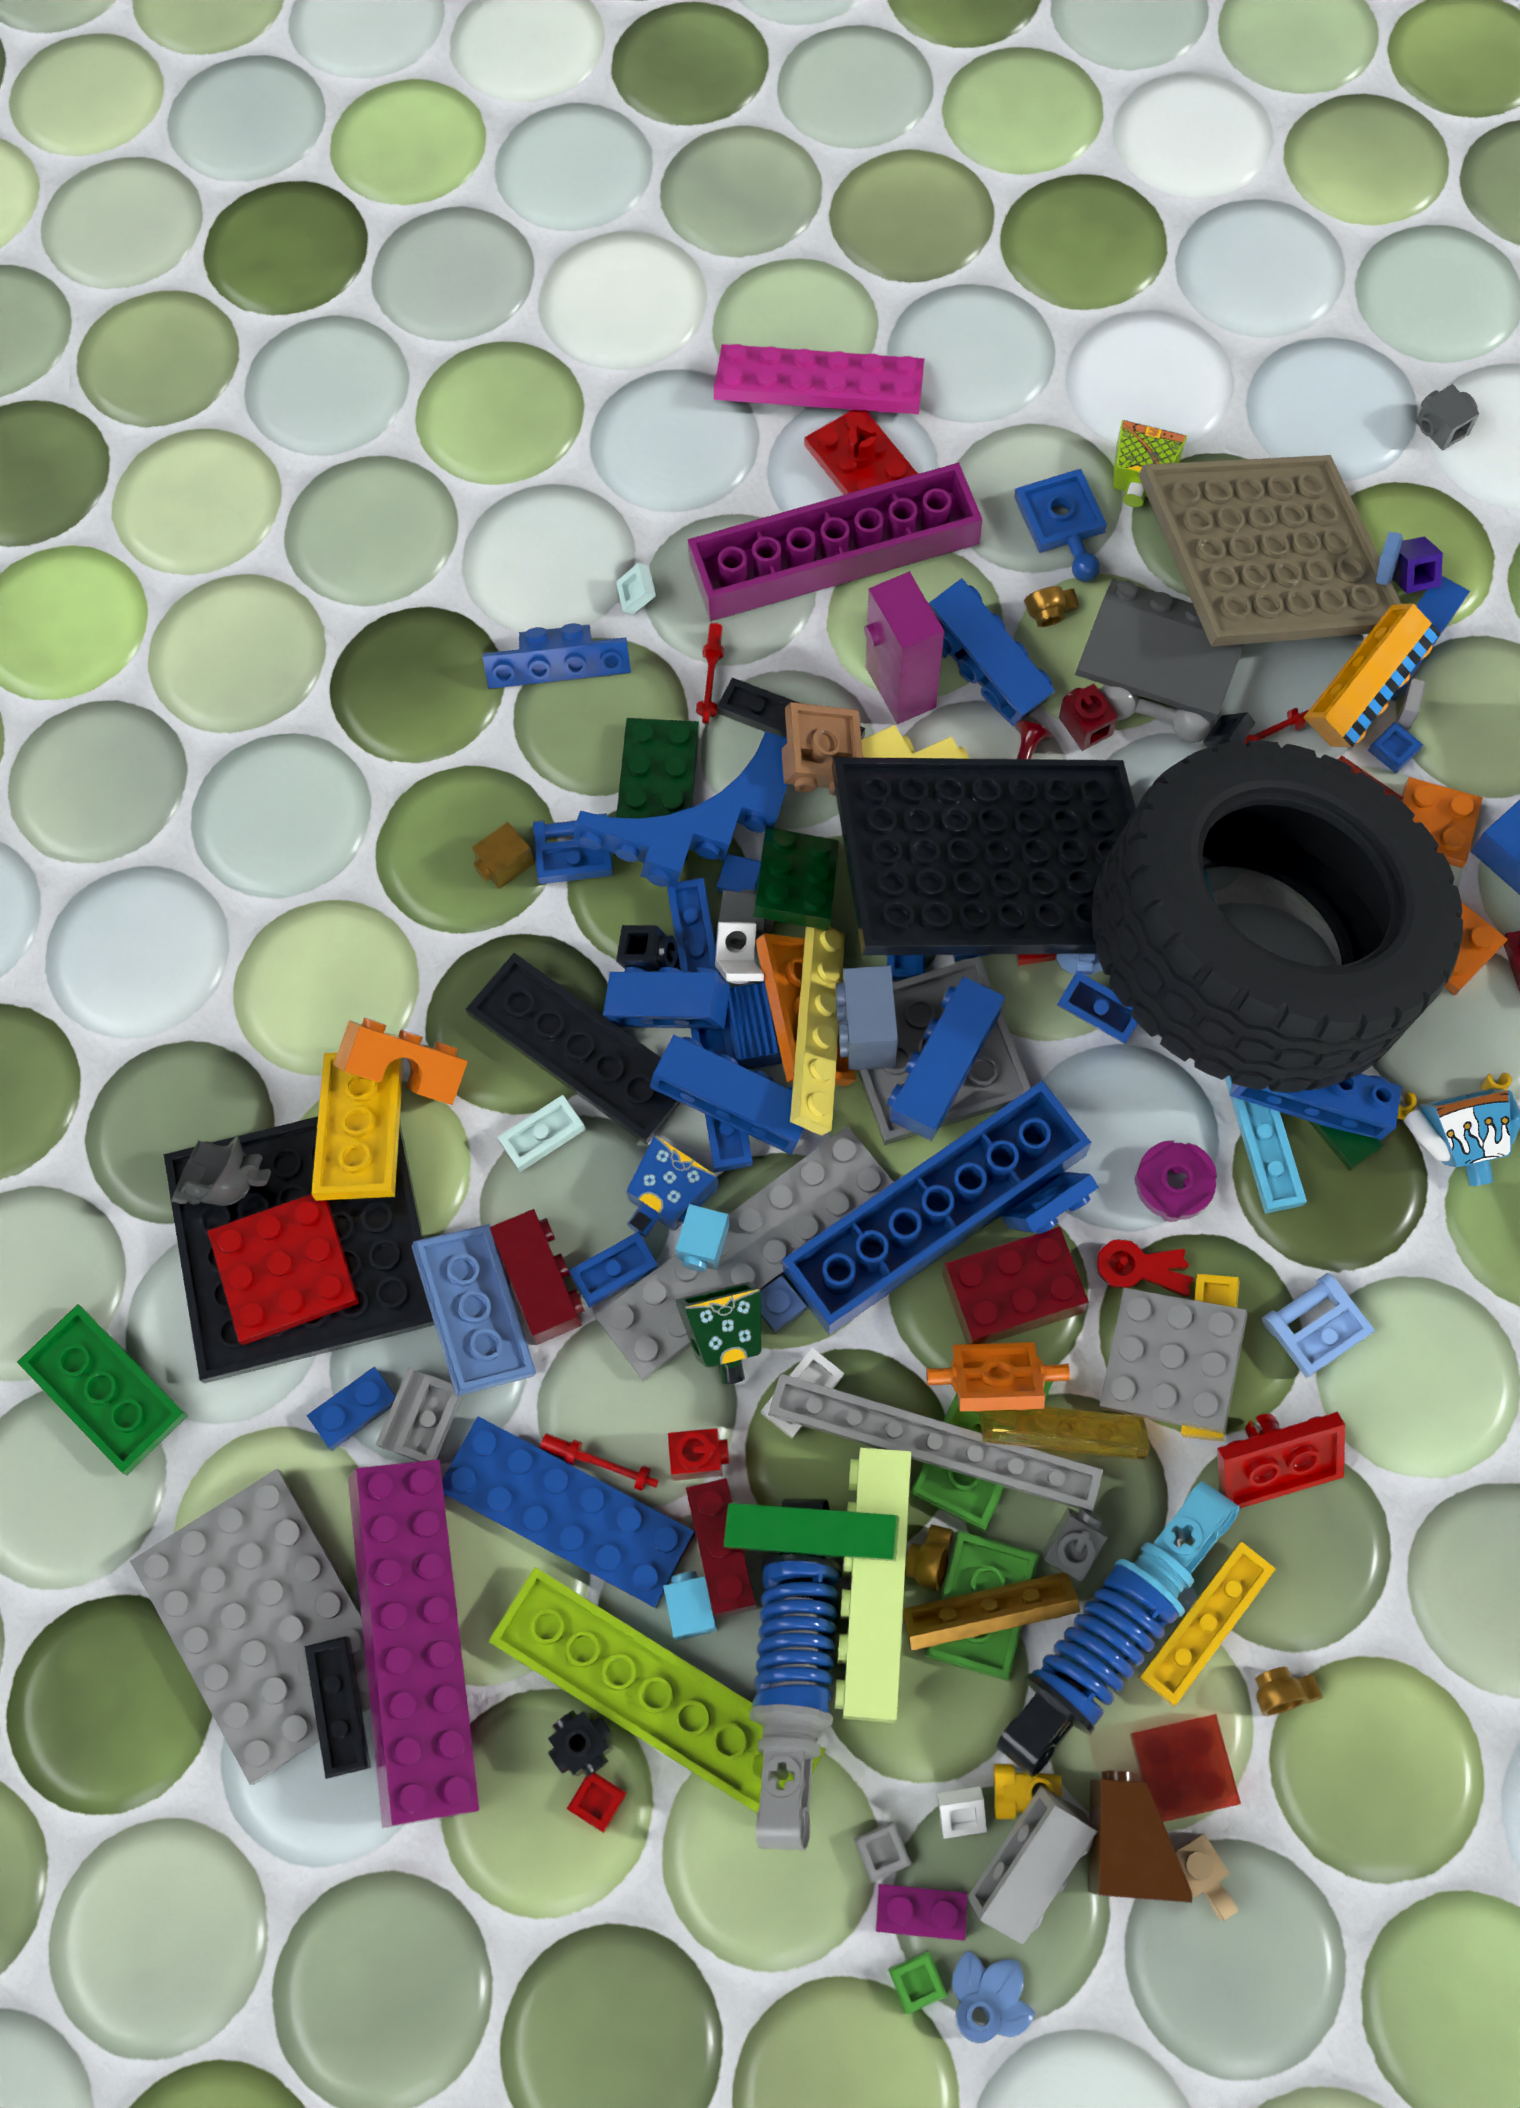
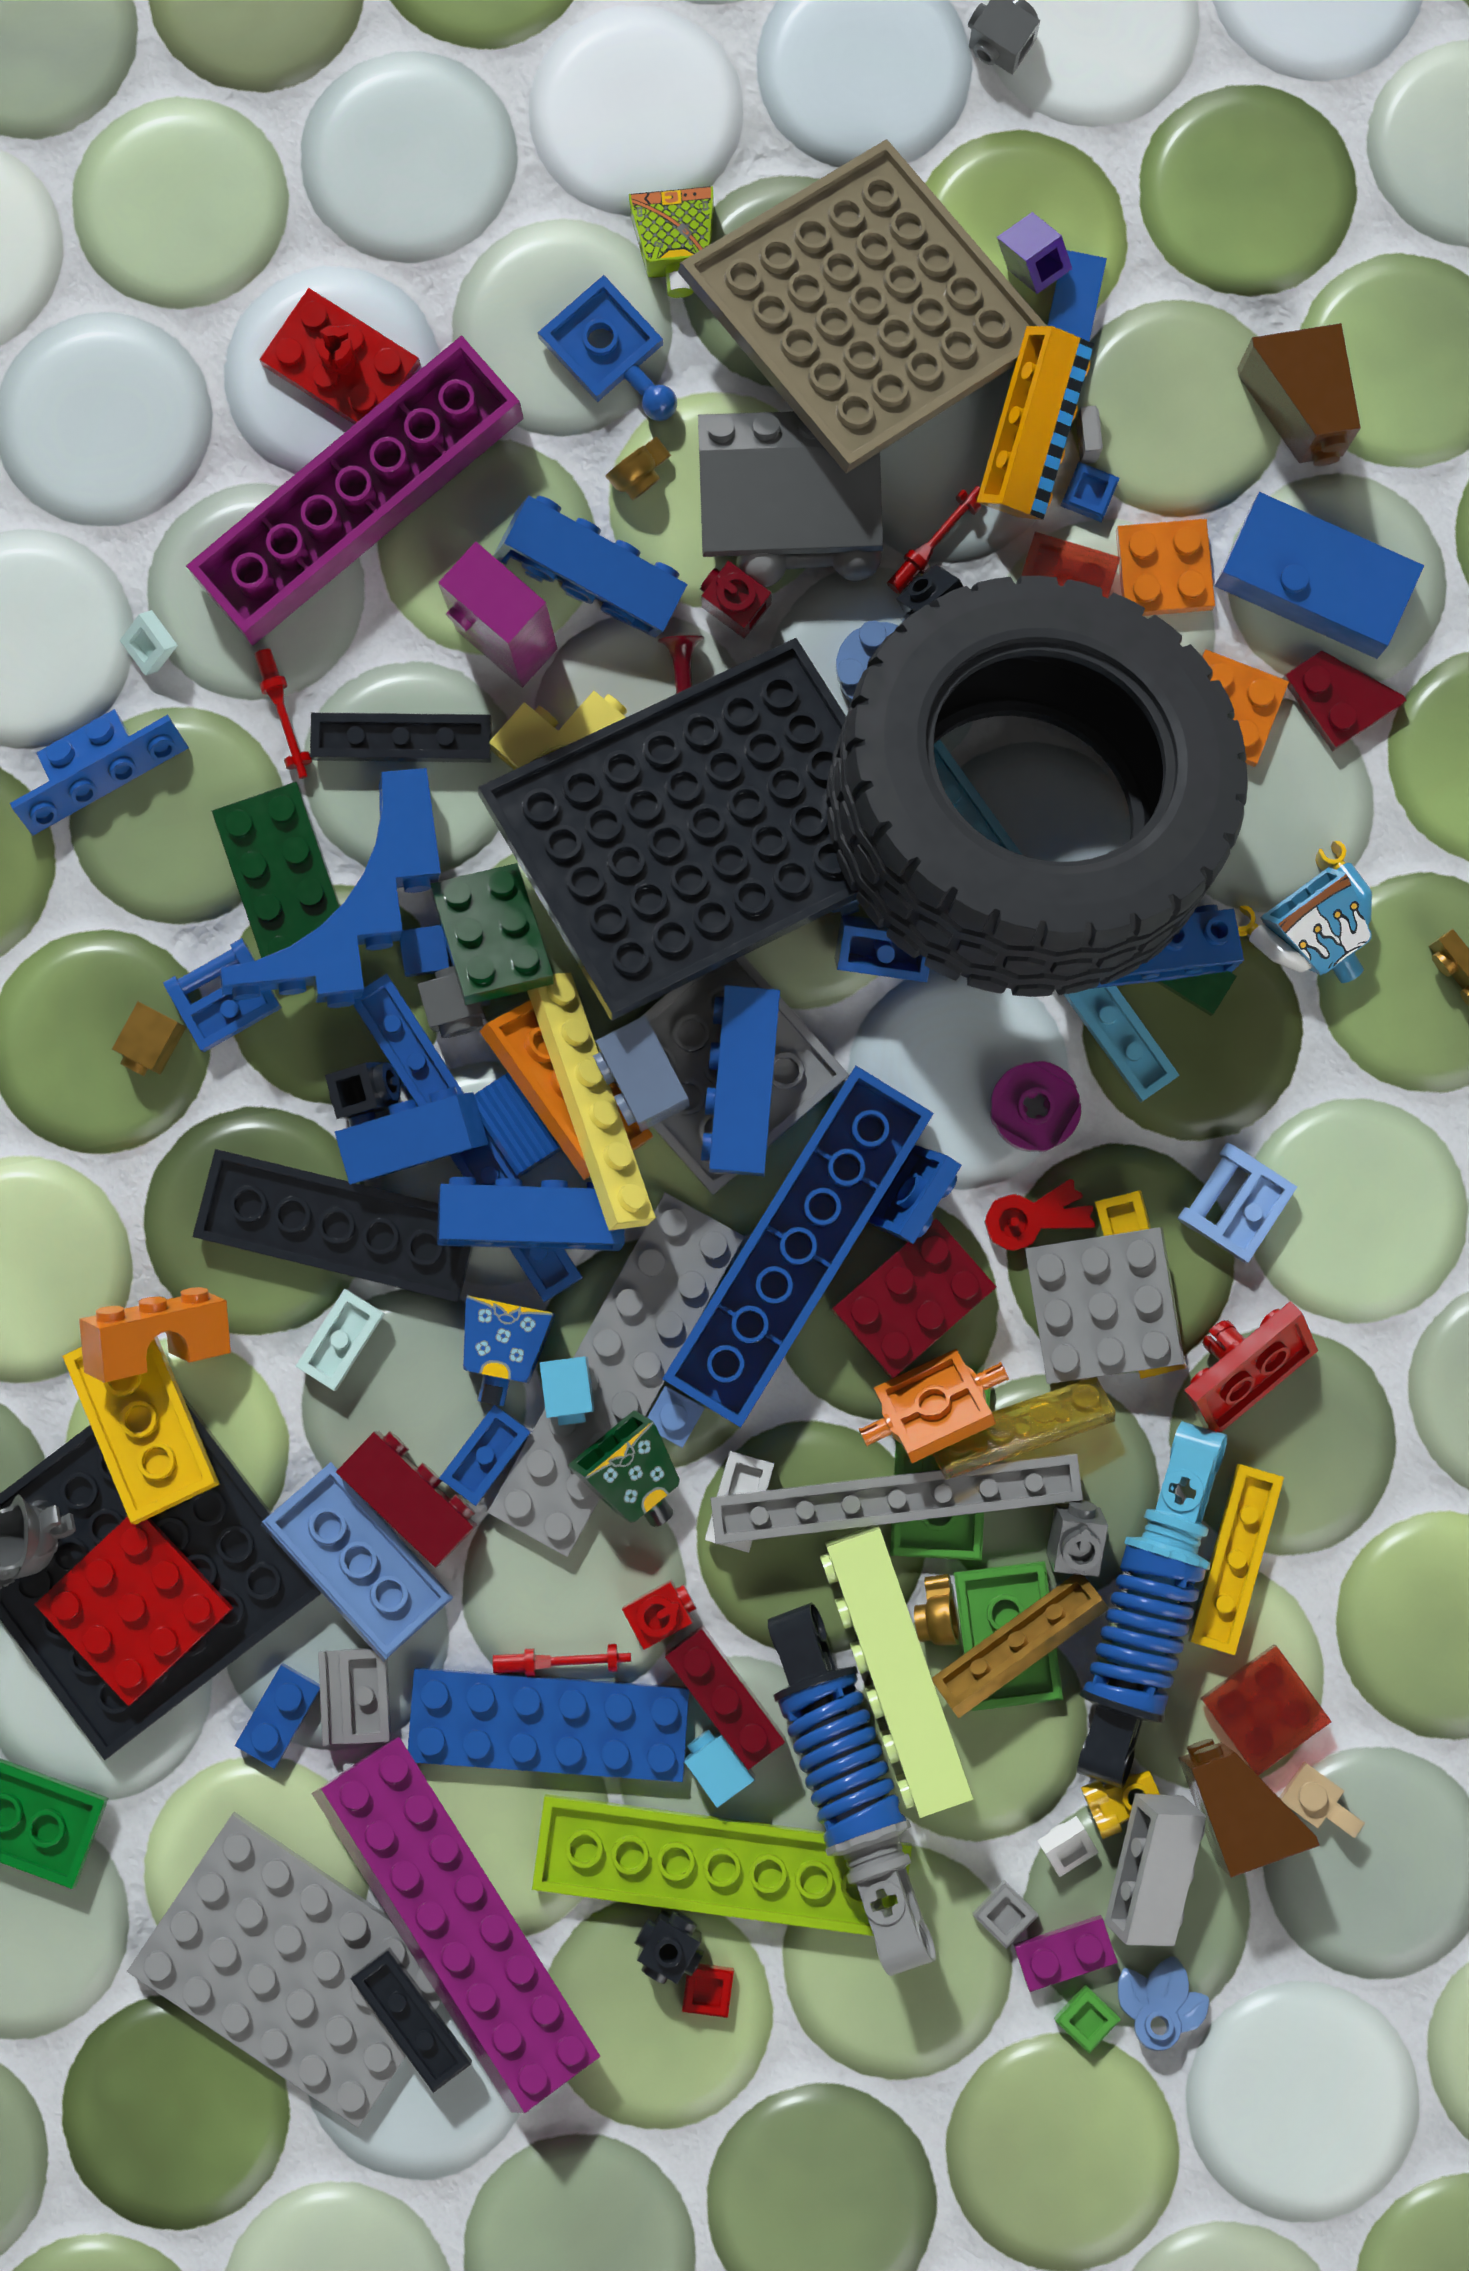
camera: 25 degrees left, 15 degrees up
(739, 965) = (471, 1064): white bracket -> none
(812, 1531) = (813, 1653): green tile -> none
(813, 741) = (450, 765): medium nougat plate -> none
(819, 379) = (243, 272): dark pink plate -> none
(1230, 729) = (901, 558): black plate -> none
(1282, 1692) = (1331, 1594): pearl gold piece -> none
(1389, 558) = (1003, 265): medium blue tile -> none

